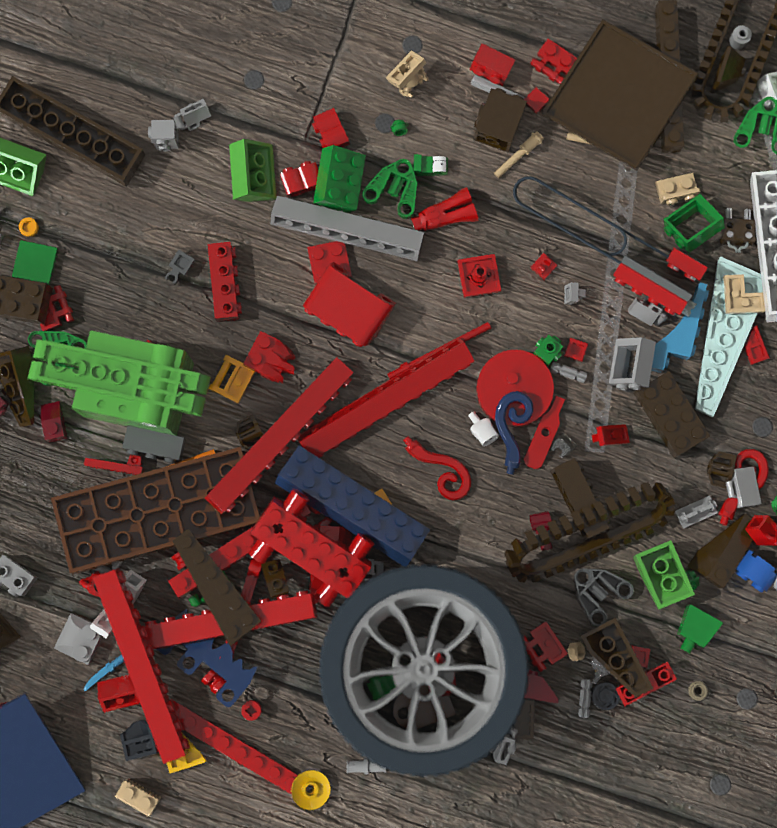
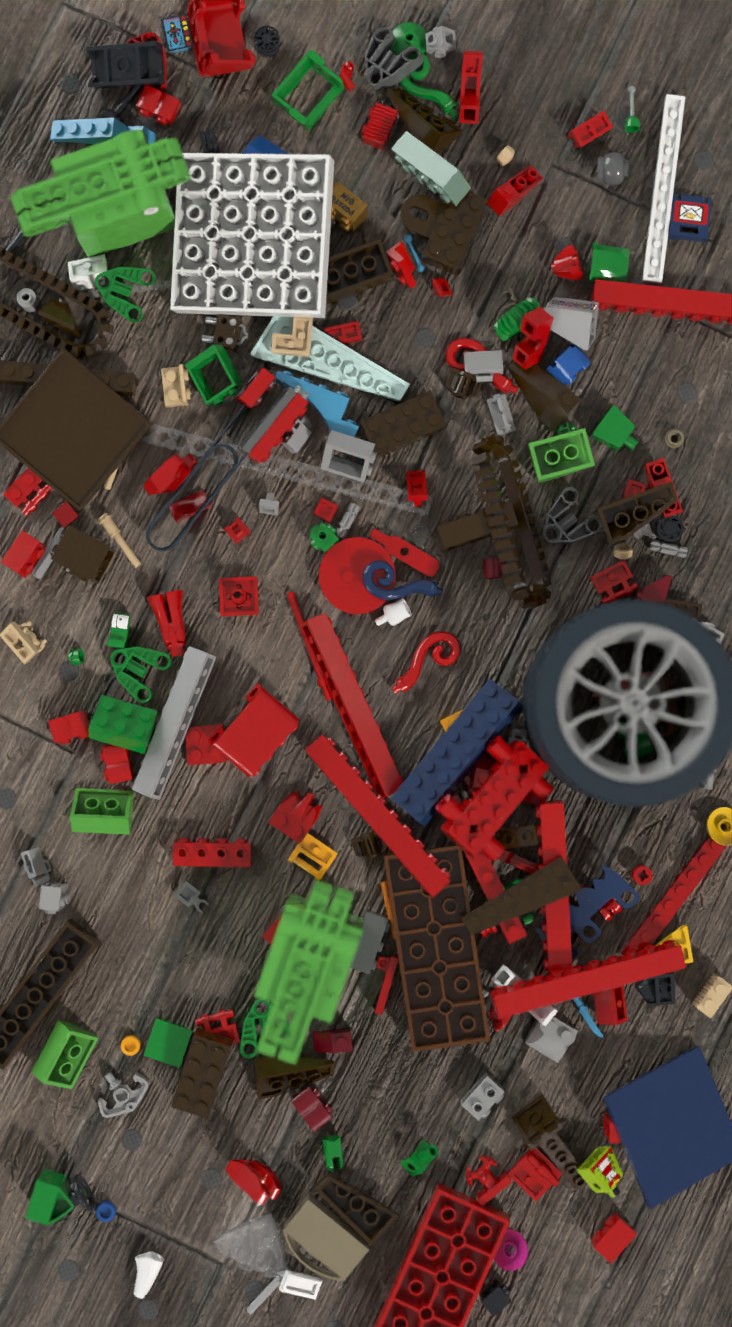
camera: 80 degrees left, 5 degrees up
(559, 214) = (188, 506): none -> red slope
(589, 193) = (170, 475): none -> red connector

